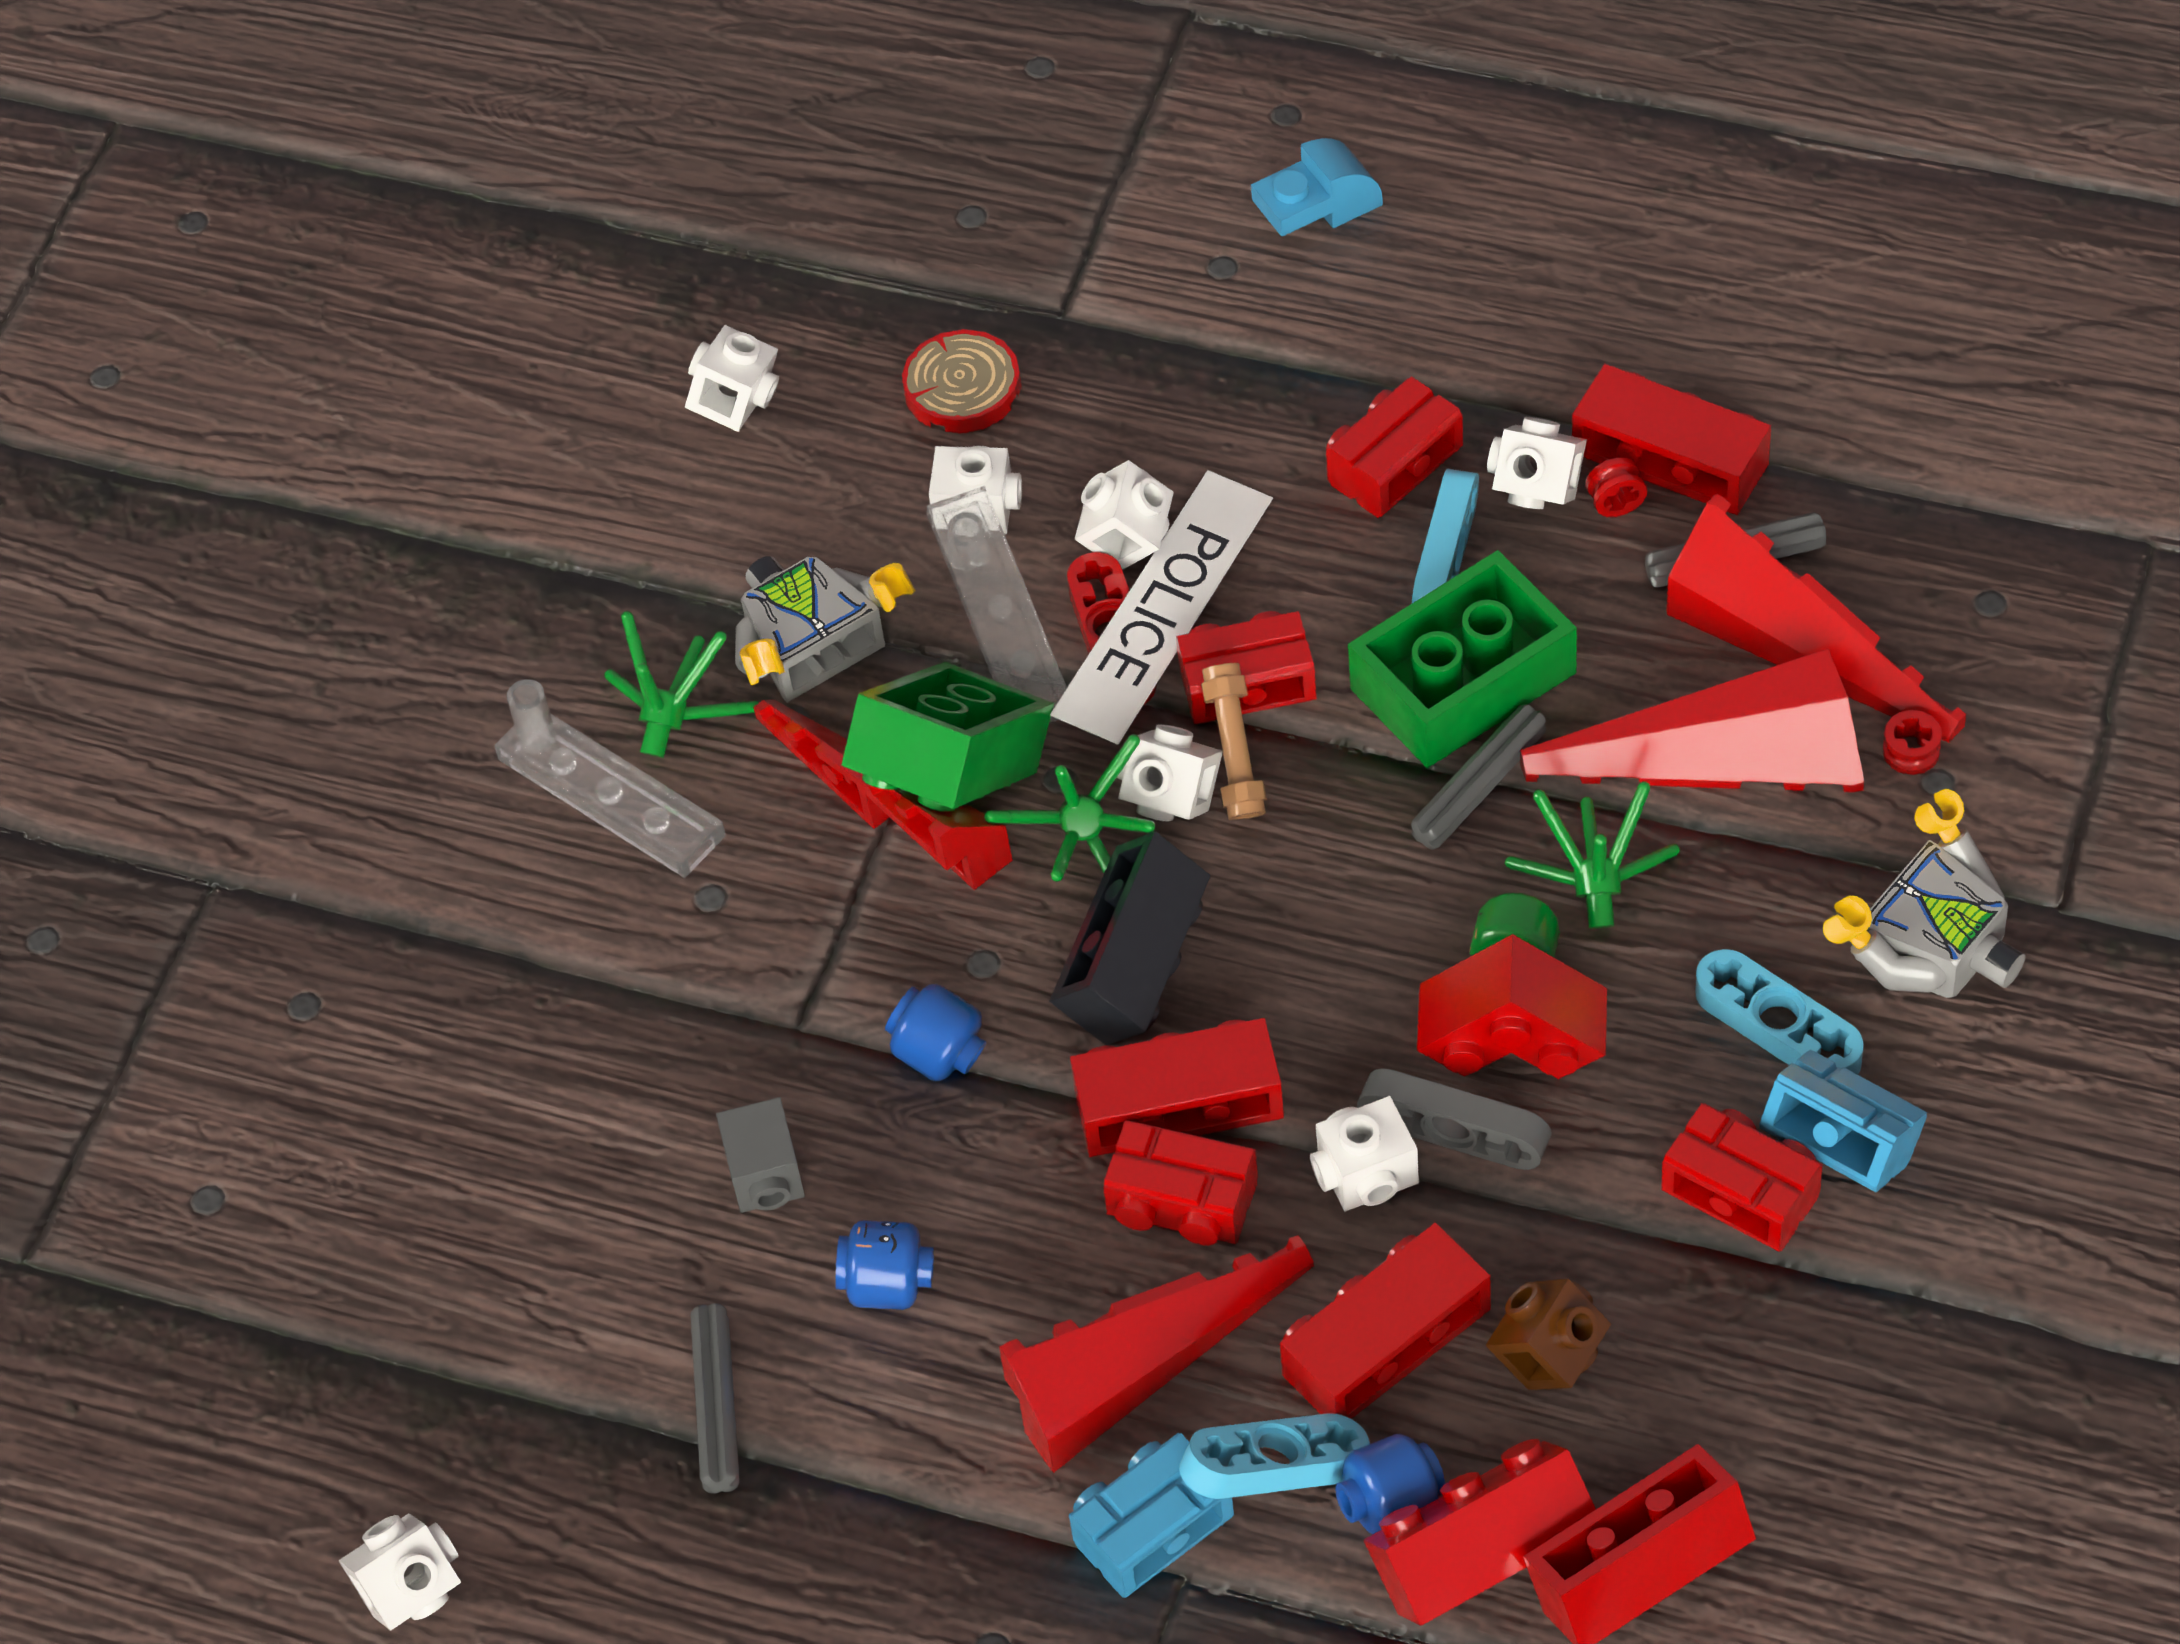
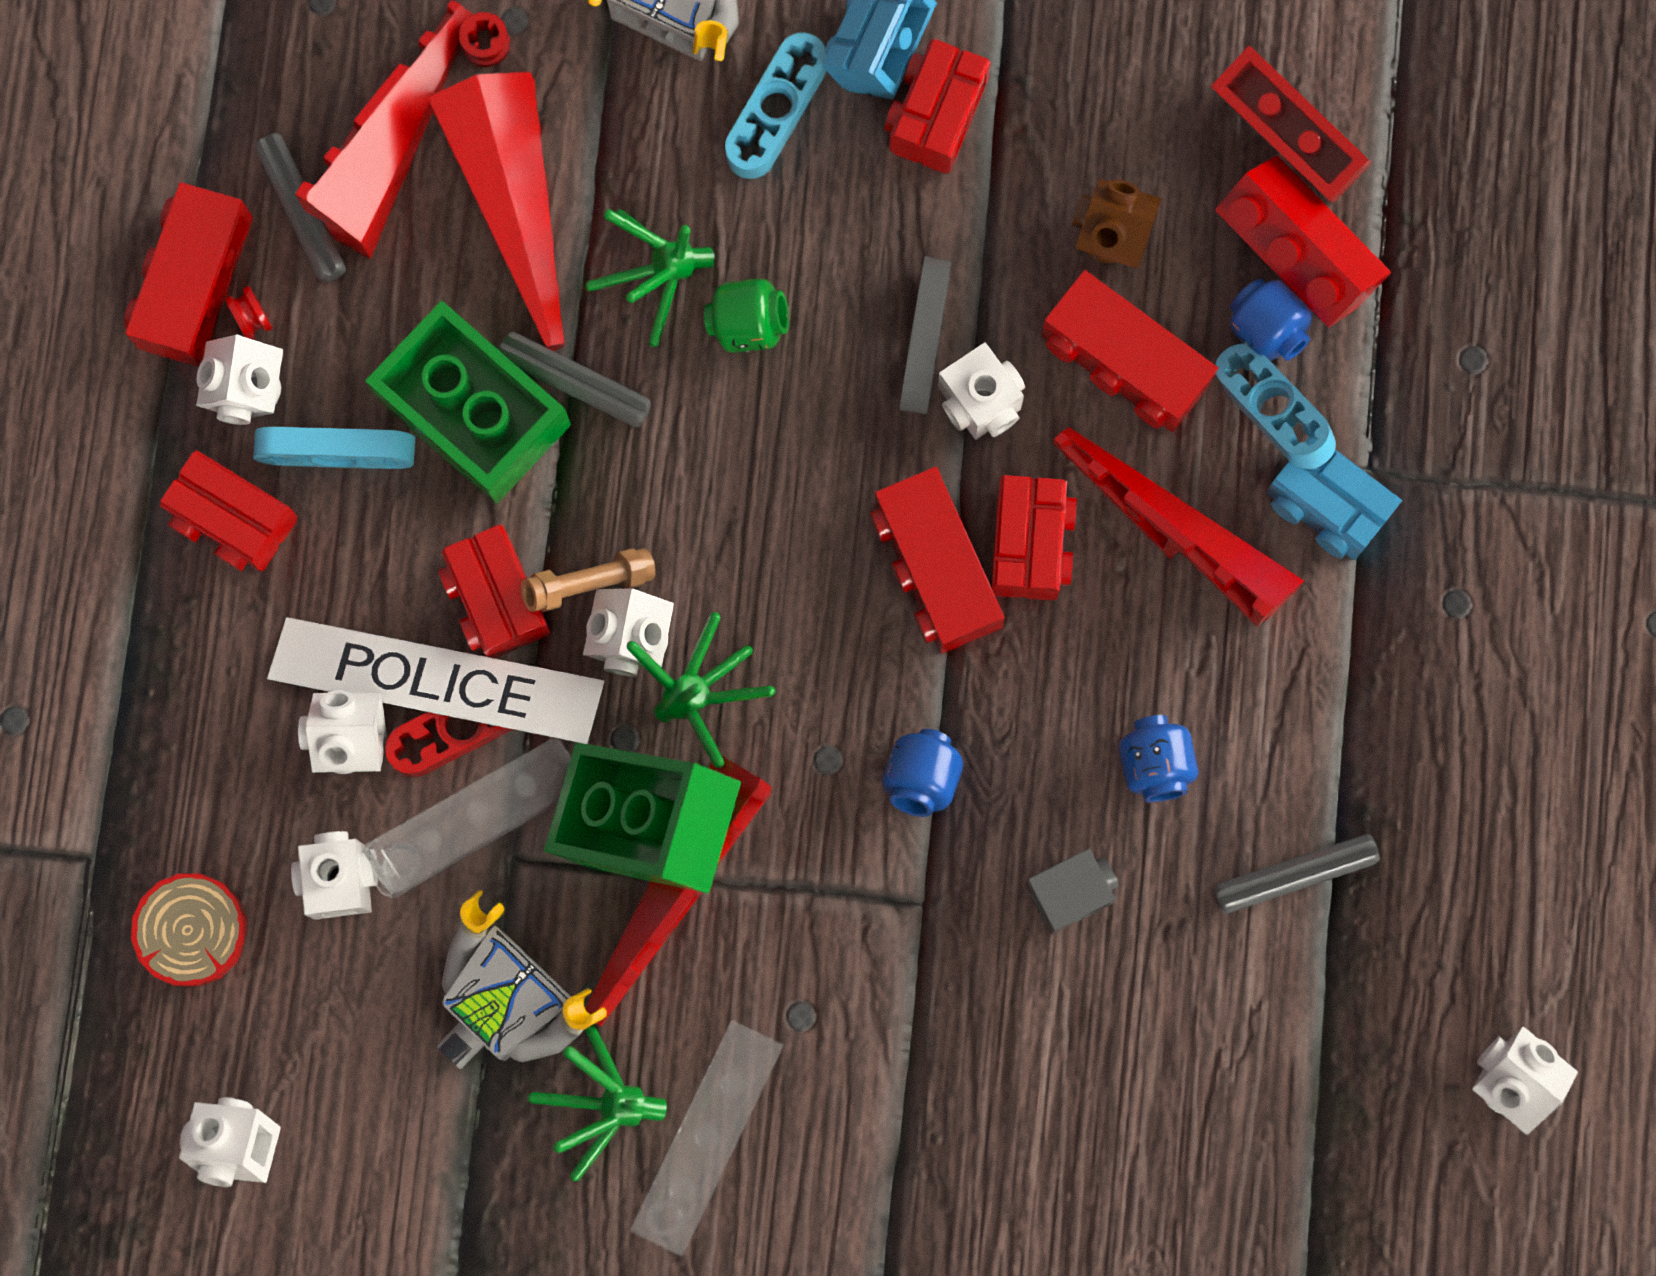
camera: 105 degrees left, 25 degrees up
(1131, 939) = (806, 624): black brick -> none
(1515, 1004) = (832, 295): red brick -> none

